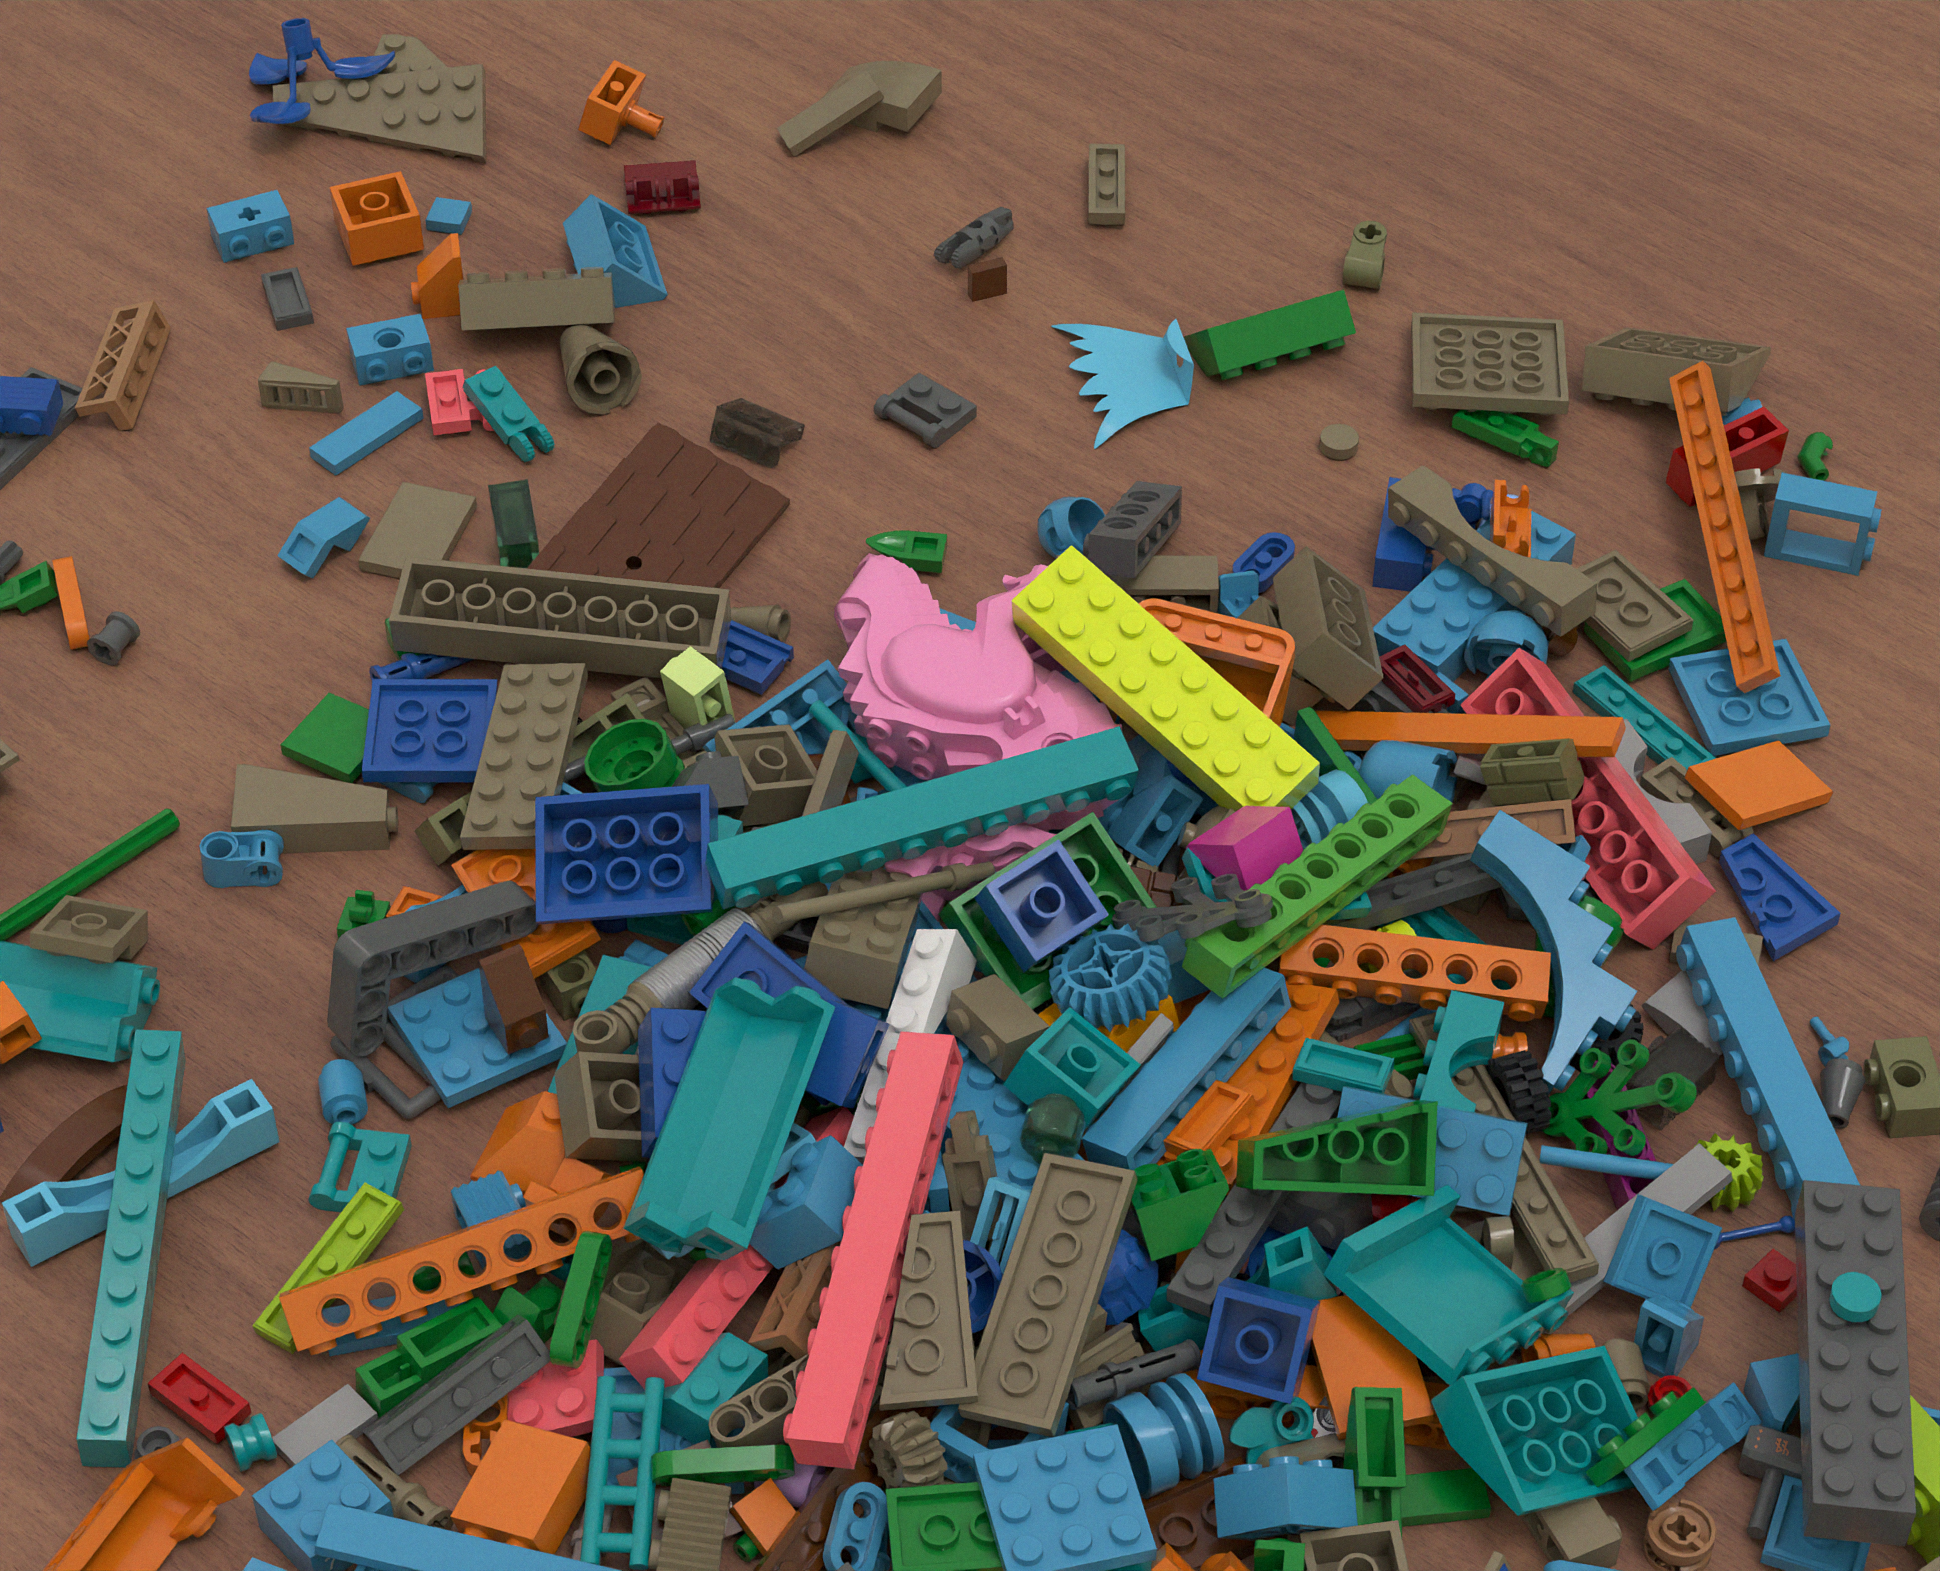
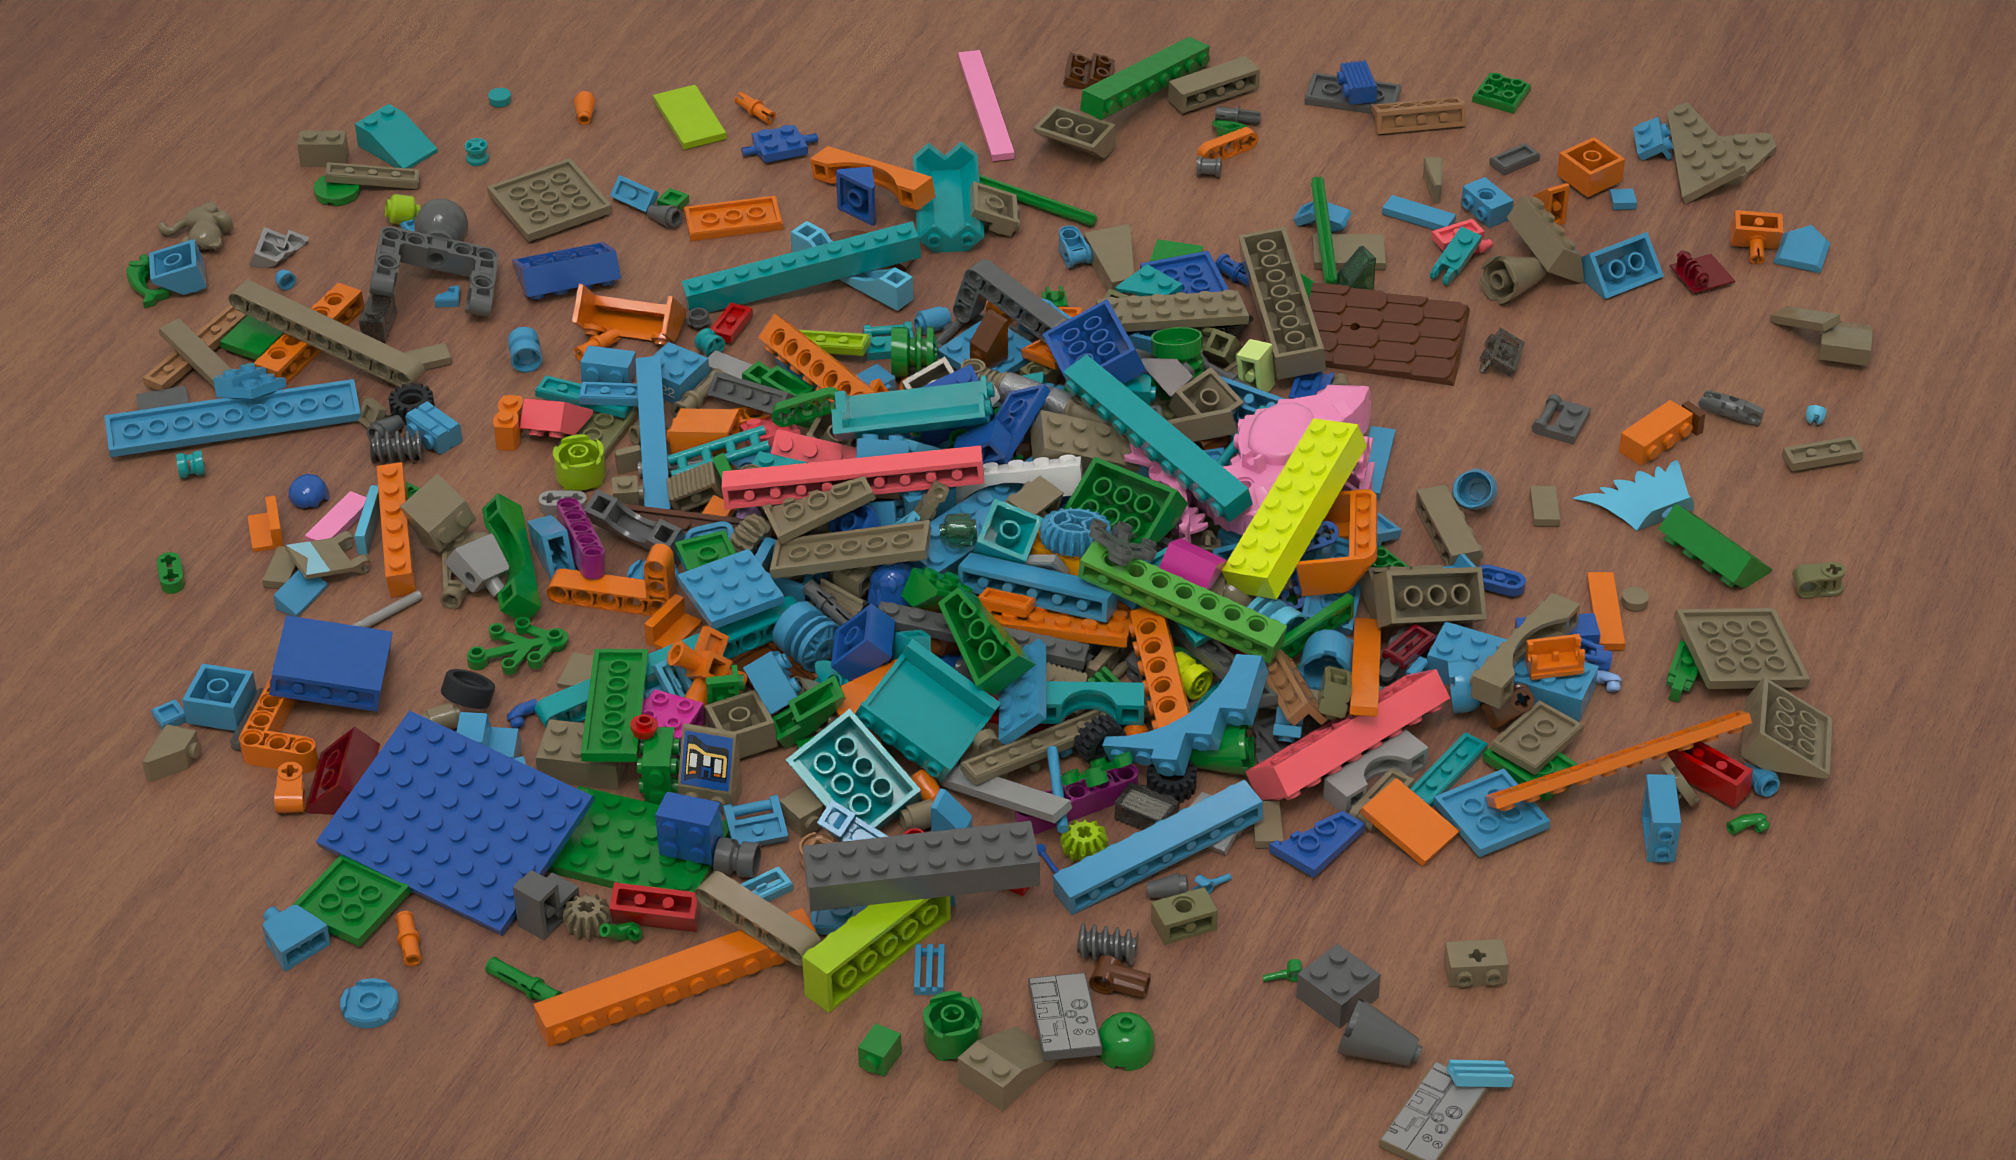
camera: 75 degrees right, 5 degrees down
(113, 269) = (1501, 92): none -> green tile
(250, 226) = (1561, 126): dark azure brick -> none
(299, 46) = (1706, 99): blue plant -> none
(331, 147) = (1653, 138): none -> dark azure bracket
(370, 532) = (1324, 230): none -> green axle
(435, 767) = (1149, 282): none -> teal wing
(448, 1129) = (912, 352): none -> green wheel
(665, 84) = (1803, 249): none -> dark azure tile
(914, 548) = (1432, 435): green plate -> none
(950, 878) = (1095, 433): dark tan bar -> none
(1005, 322) = (1656, 432): none -> orange brick
(1023, 169) = (1816, 413): none -> medium azure hinge
(1041, 905) = (1101, 485): blue brick -> none
(1105, 475) = (1544, 506): none -> dark tan tile
(1134, 529) = (1480, 508): dark grey brick -> none
(1336, 472) = (1606, 609): none -> orange tile
(1341, 1066) = (1062, 645): teal tile -> none
(1546, 1285) = (949, 756): green tile -> none
(1643, 1434) = (865, 811): green plate -> none
(1662, 1252) = (997, 802): dark azure tile -> none
(1855, 1297) = (942, 840): teal tile -> none

